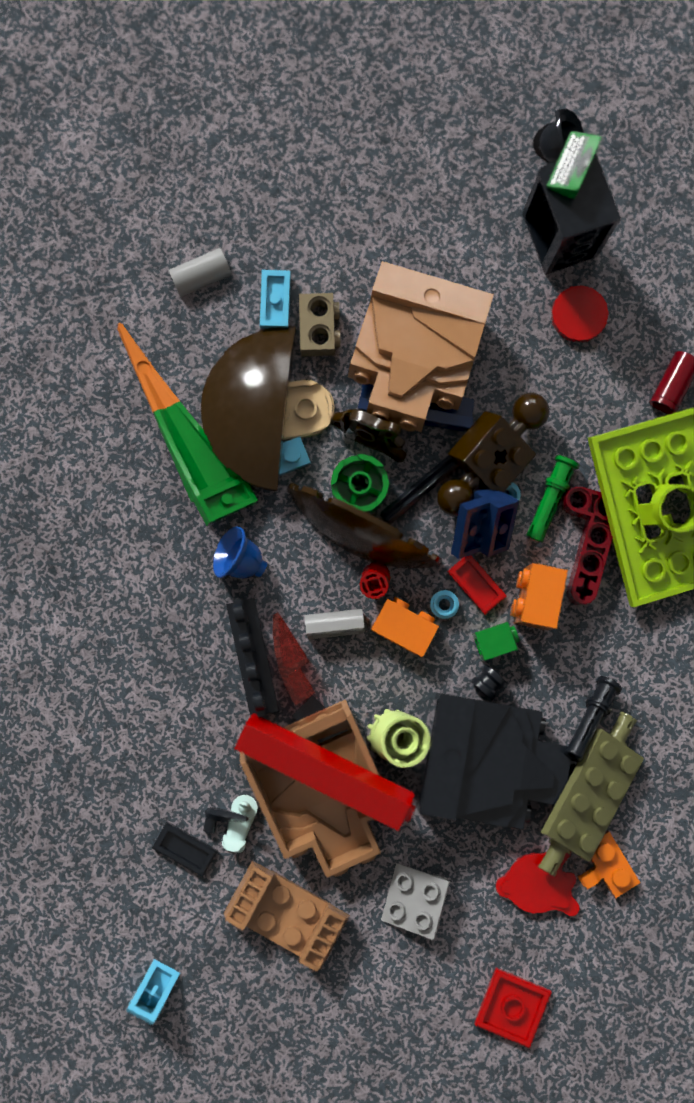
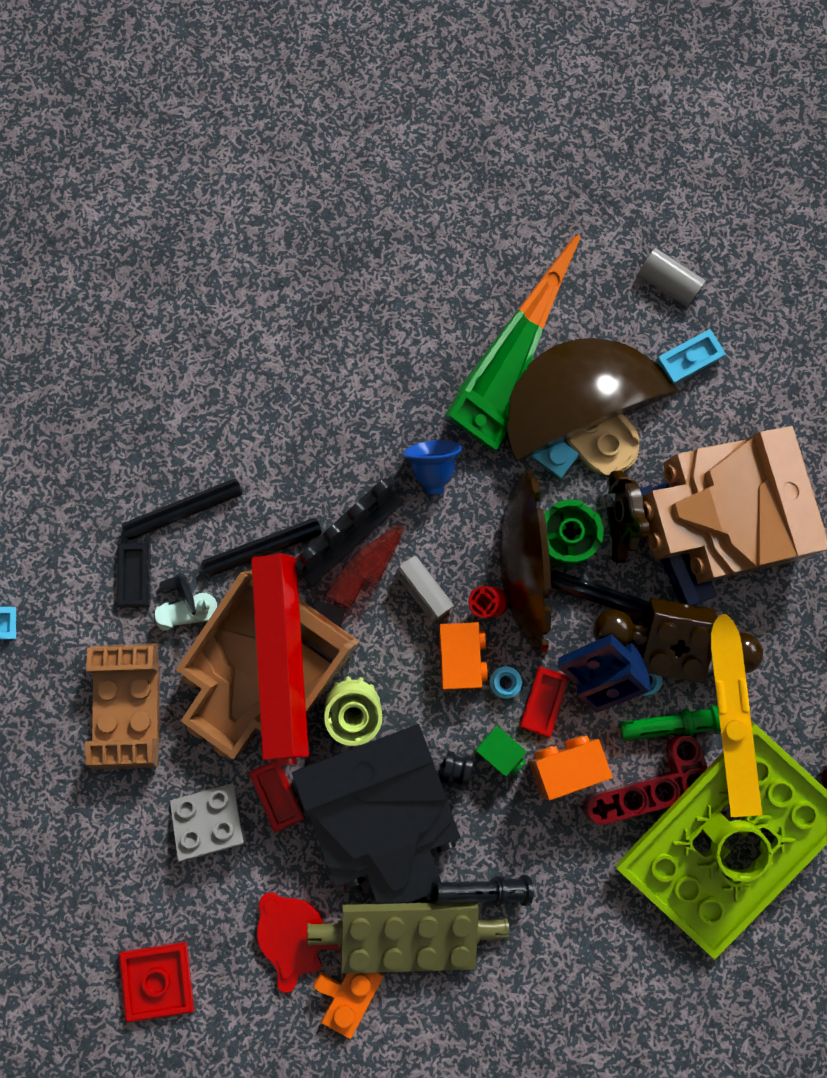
camera: 55 degrees right, 5 degrees down
(154, 779) = (182, 509): none -> black axle
(223, 733) = (261, 547): none -> black axle
(312, 325) = (689, 404): dark tan brick -> none
(427, 835) = (276, 796): none -> red tile
(577, 450) = (735, 719): none -> yellow piece

